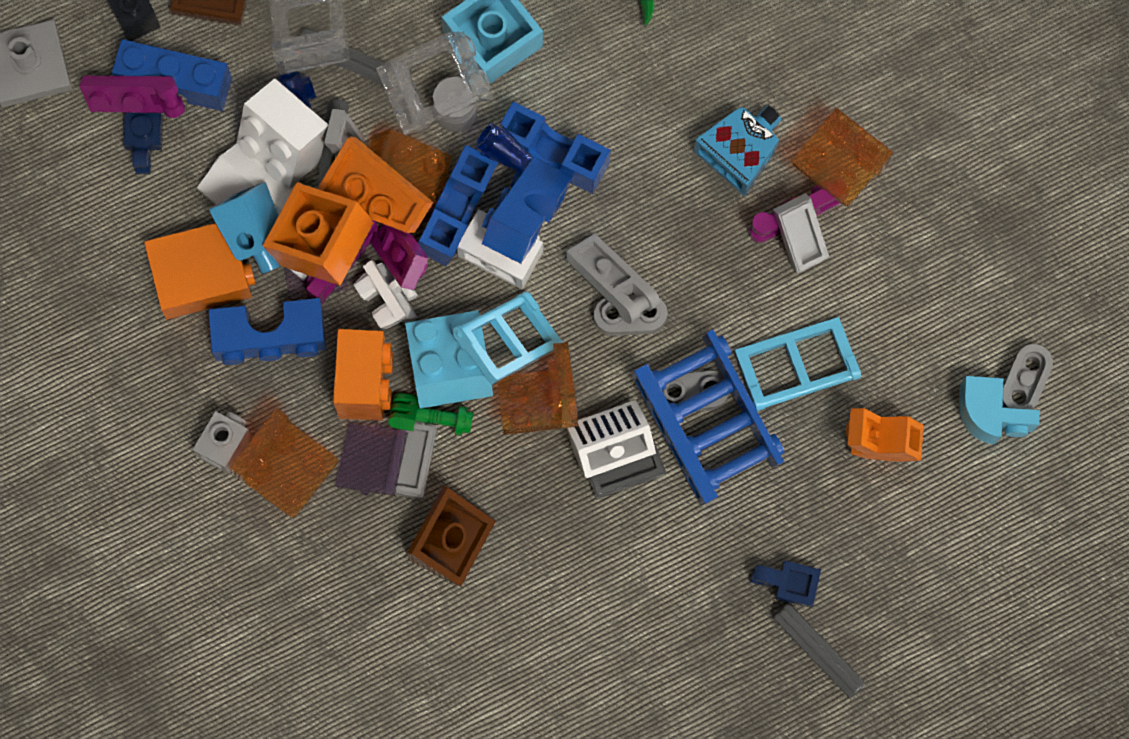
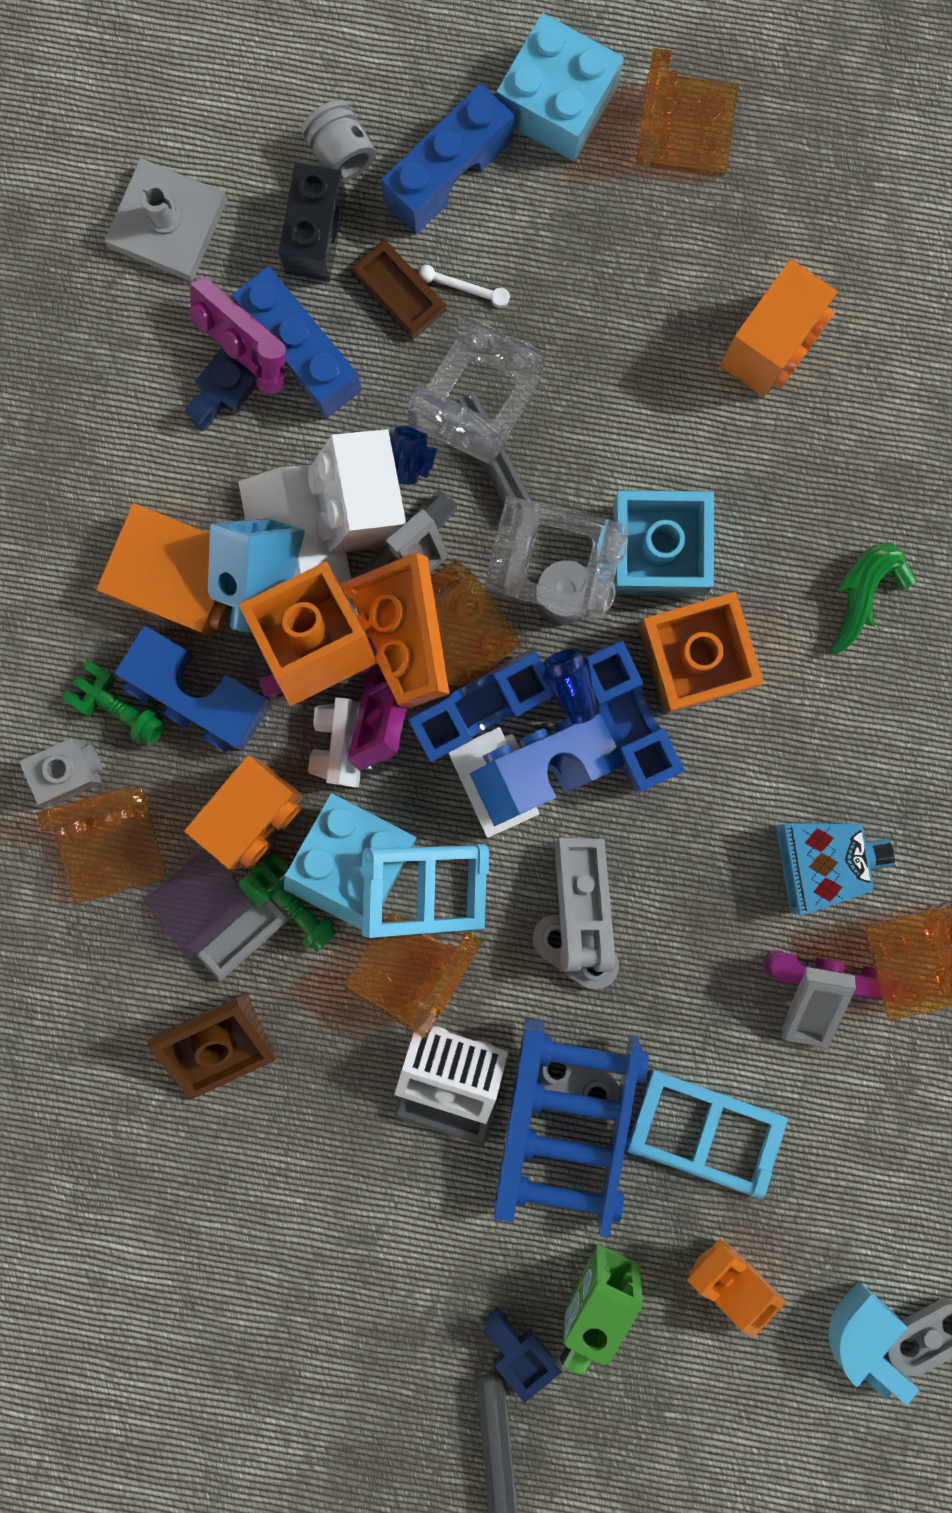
camera: 40 degrees right, 10 degrees up
(254, 376) = (144, 726): none -> green hinge
(566, 79) = (700, 653): none -> orange brick
(811, 497) = (601, 1310): none -> bright green torso

